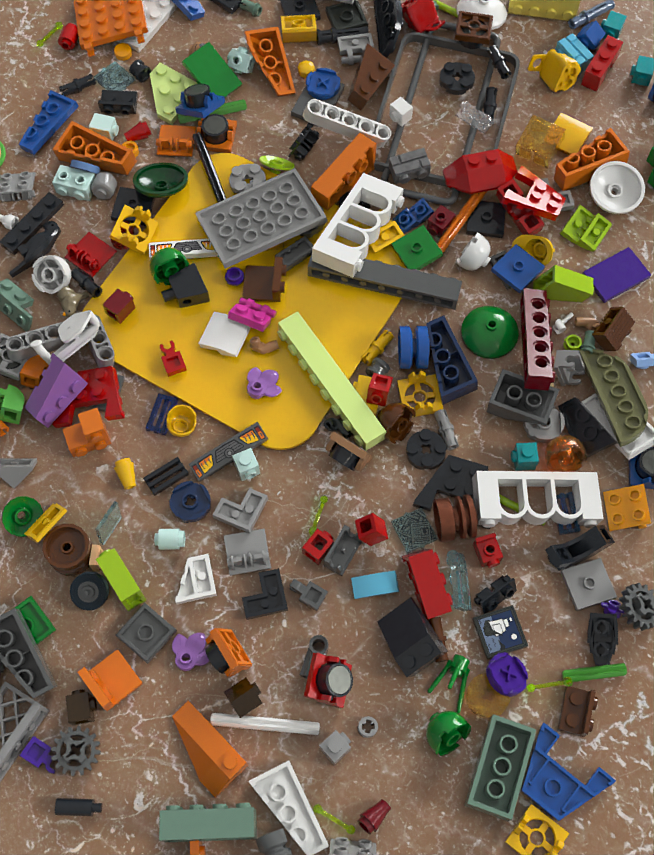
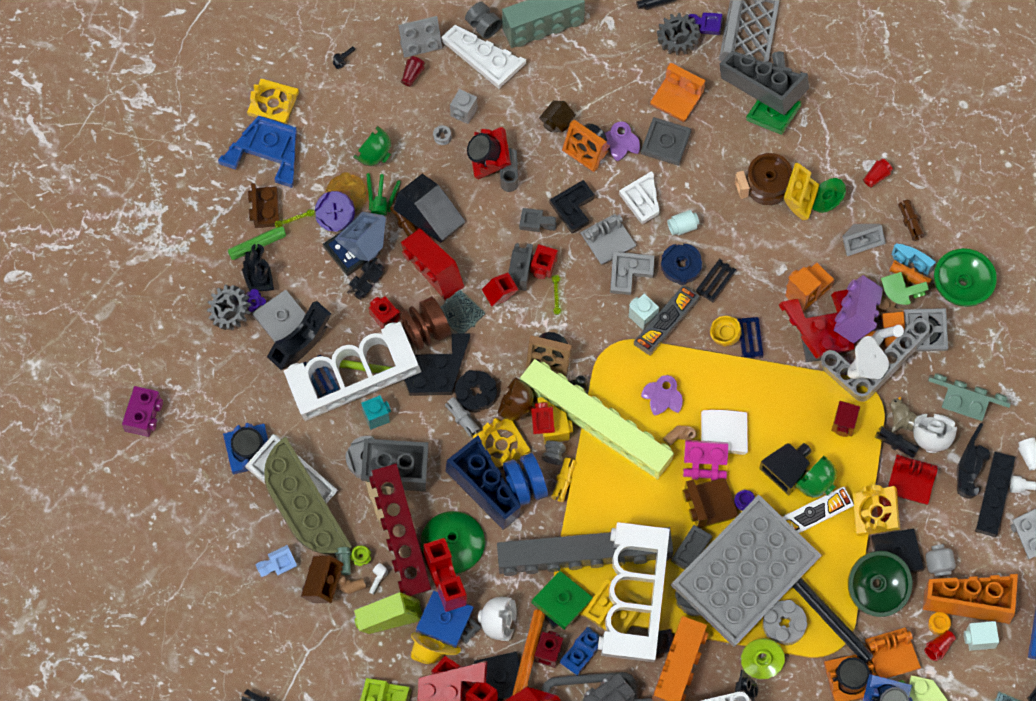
camera: 160 degrees right, 0 degrees up
(73, 183) = (975, 552): light aqua brick -> none
(80, 707) = (692, 62): dark brown brick -> none
(85, 166) = (972, 567): medium blue piece -> none
(89, 591) = (733, 155): black wheel -> none
(108, 523) = (744, 211): clear light blue piece -> none
(118, 102) = (984, 678): black bracket -> none
(120, 579) = (708, 168): lime window -> none
(125, 471) = (756, 269): yellow cone -> none
(172, 360) = (762, 384): red plate -> none
(210, 753) = (567, 73): orange wedge -> none
(266, 724) = (527, 109): white axle -> none
(318, 810) = (461, 64): clear neon green hinge -> none
(375, 584) = (478, 246): medium azure slope -> none
(459, 581) = (402, 276): clear light blue hinge -> none
(487, 631) = (364, 236): none -> sand blue slope
(500, 768) = (318, 135): sand green brick -> none
(510, 288) = (443, 574): none -> red arch
(565, 454) = (338, 428): clear orange cylinder -> none
(567, 365) = (361, 515): light grey hinge -> none
(585, 427) = (325, 460): black wing -> none
(617, 274) = (334, 657): dark purple tile -> none
(627, 508) = (262, 398): light orange hinge -> none

